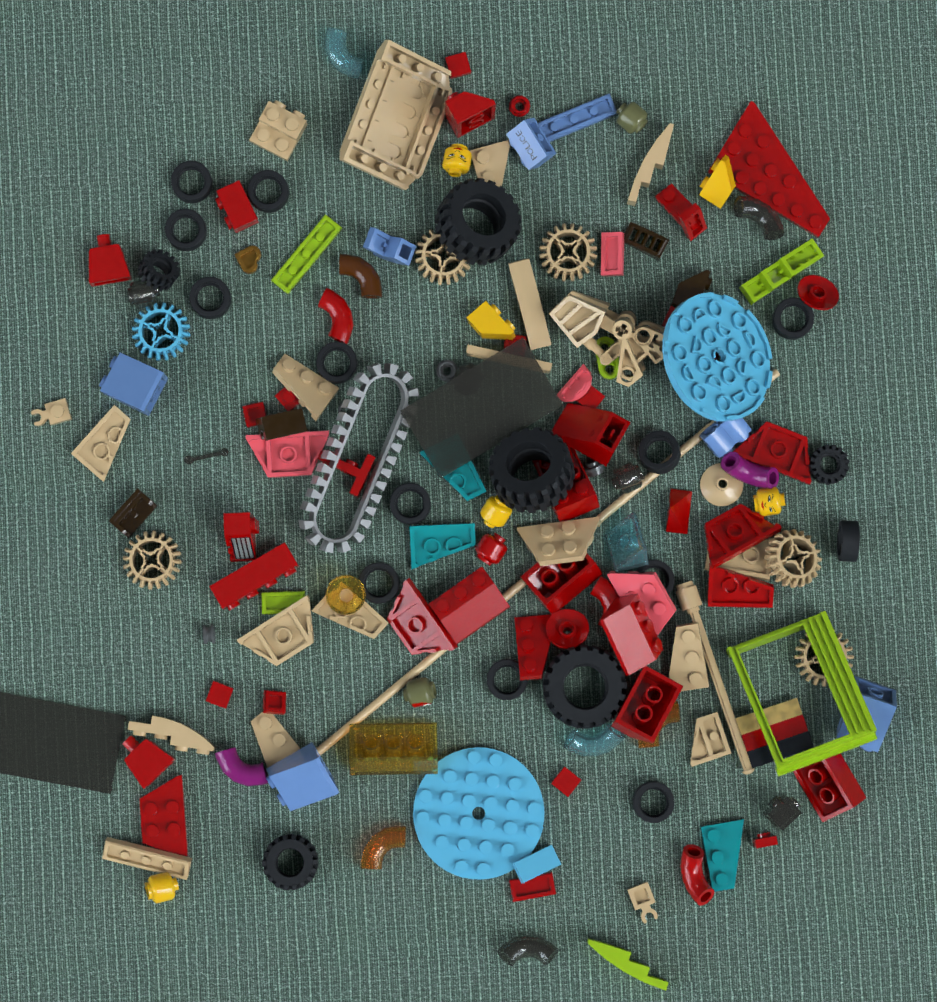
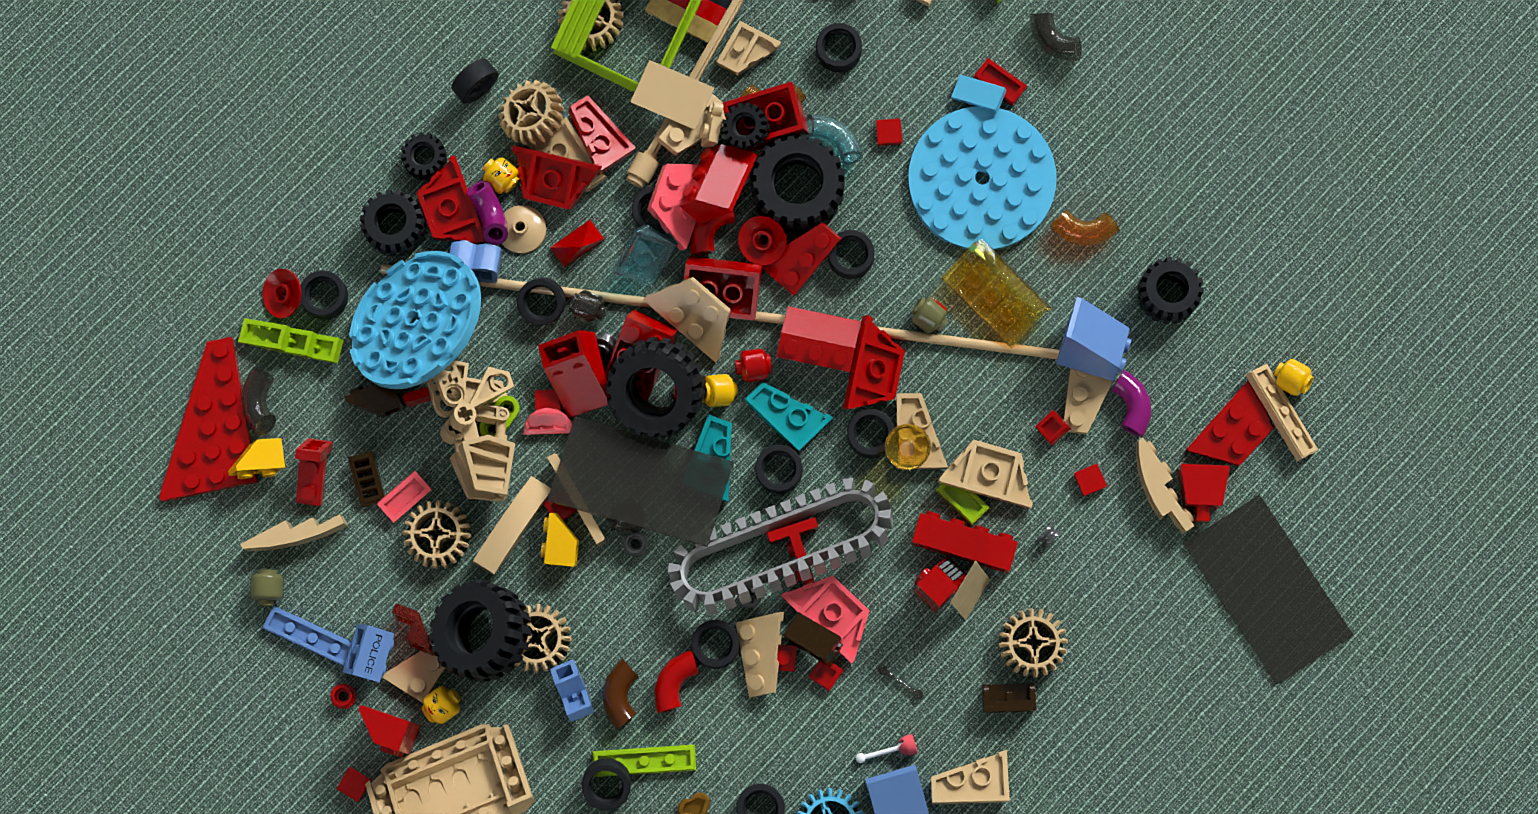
camera: 125 degrees left, 5 degrees down
(164, 422) = (905, 746): none -> hinge
(218, 548) = (970, 590): none -> tan sticker
(302, 206) = (606, 803): none -> black tyre
(514, 185) = (417, 636): none -> clear red slope
(644, 696) = (733, 119): none -> black tyre
(672, 663) = (711, 128): none -> tan plate
(718, 658) = (672, 94): none -> tan sticker
(812, 390) = (383, 206): none -> black tyre

